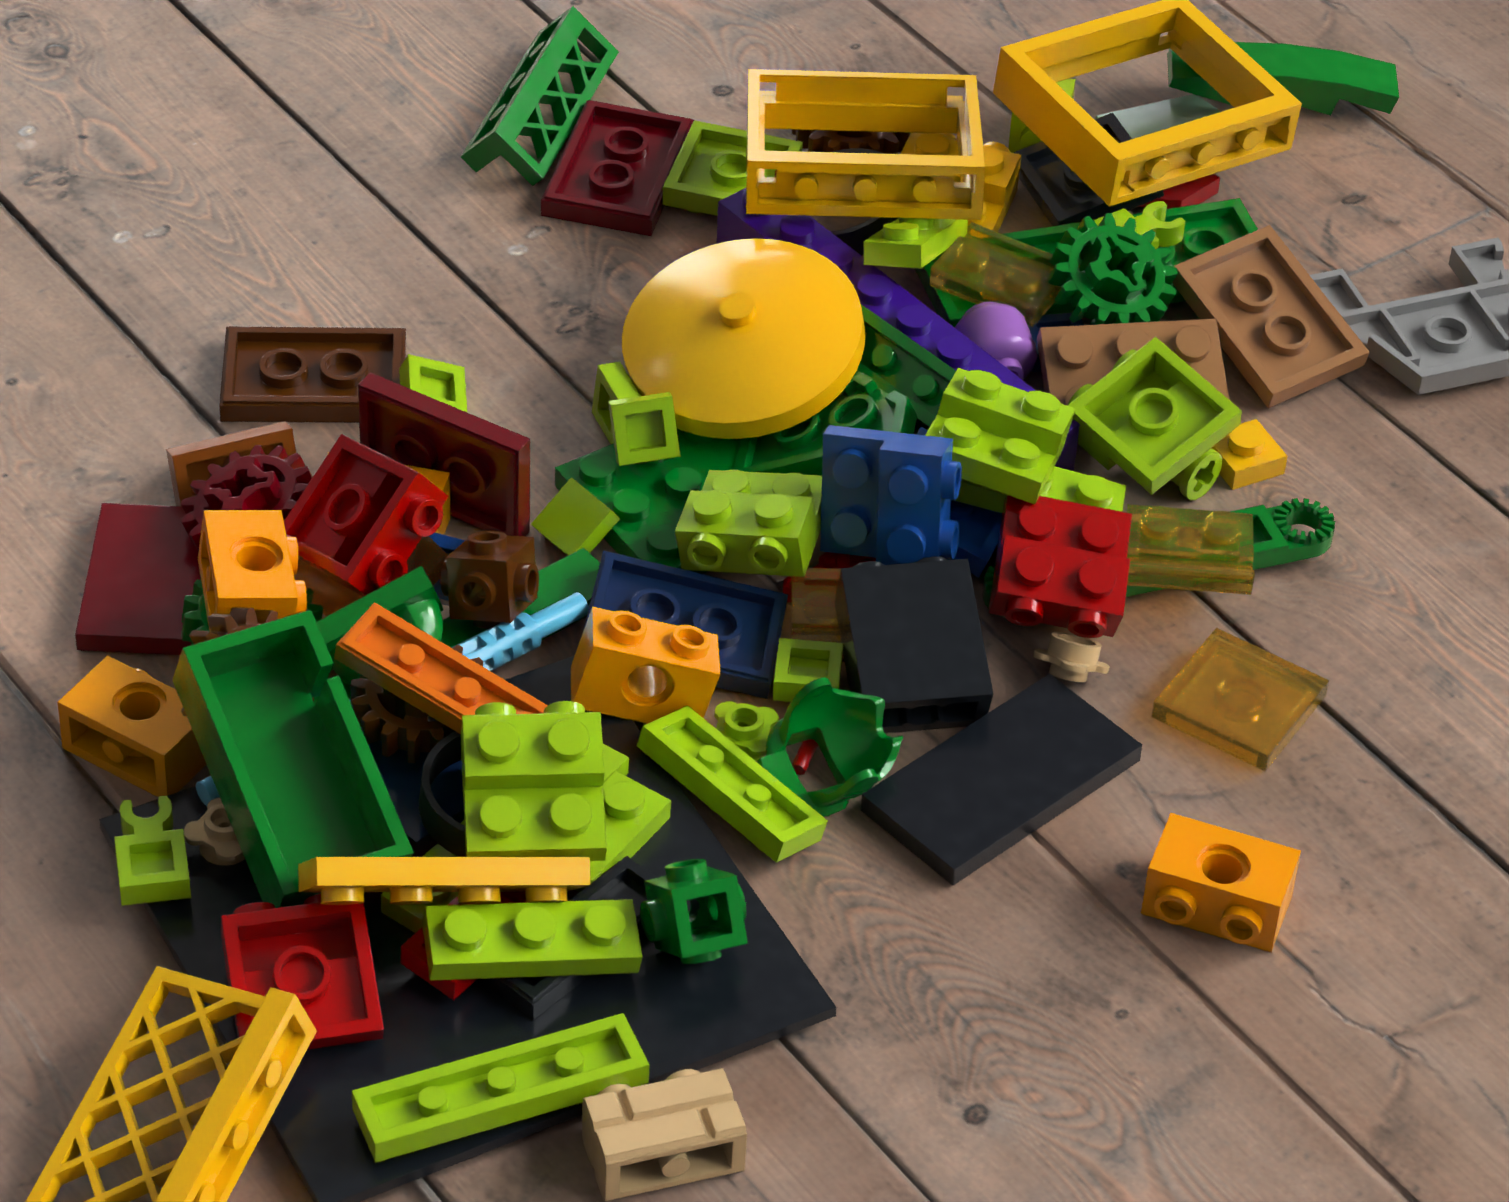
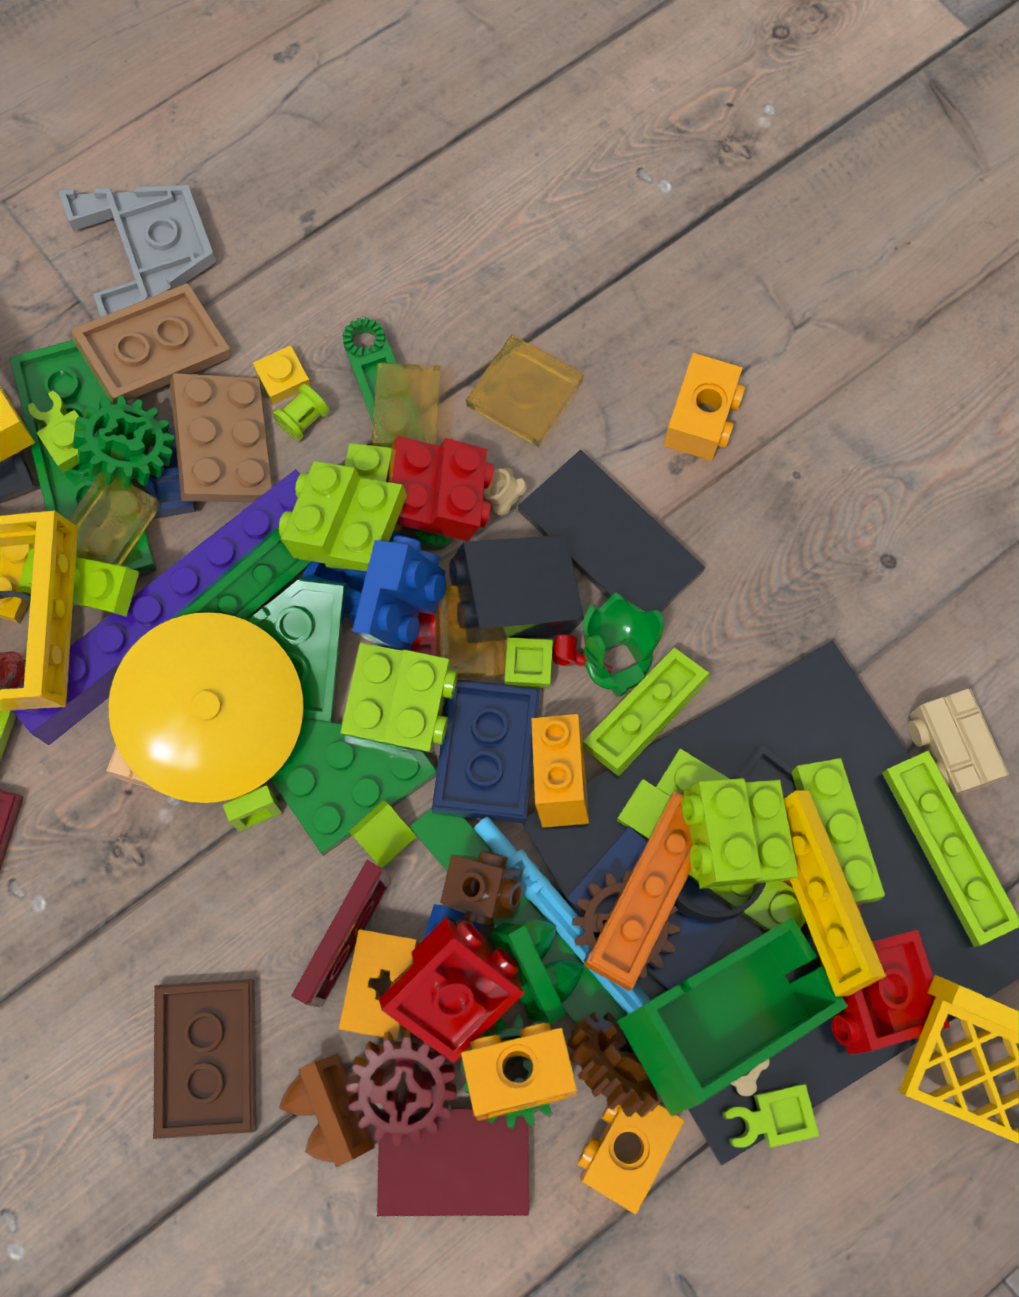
camera: 90 degrees left, 30 degrees up
(435, 379) = (237, 955): lime plate -> none
(644, 428) = (306, 781): lime tile -> none
(714, 913) = (801, 724): green brick -> none
(746, 726) = (594, 696): lime plate -> none
(1002, 334) = (181, 529): medium lavender head -> none
(1151, 415) = (285, 420): lime plate -> none

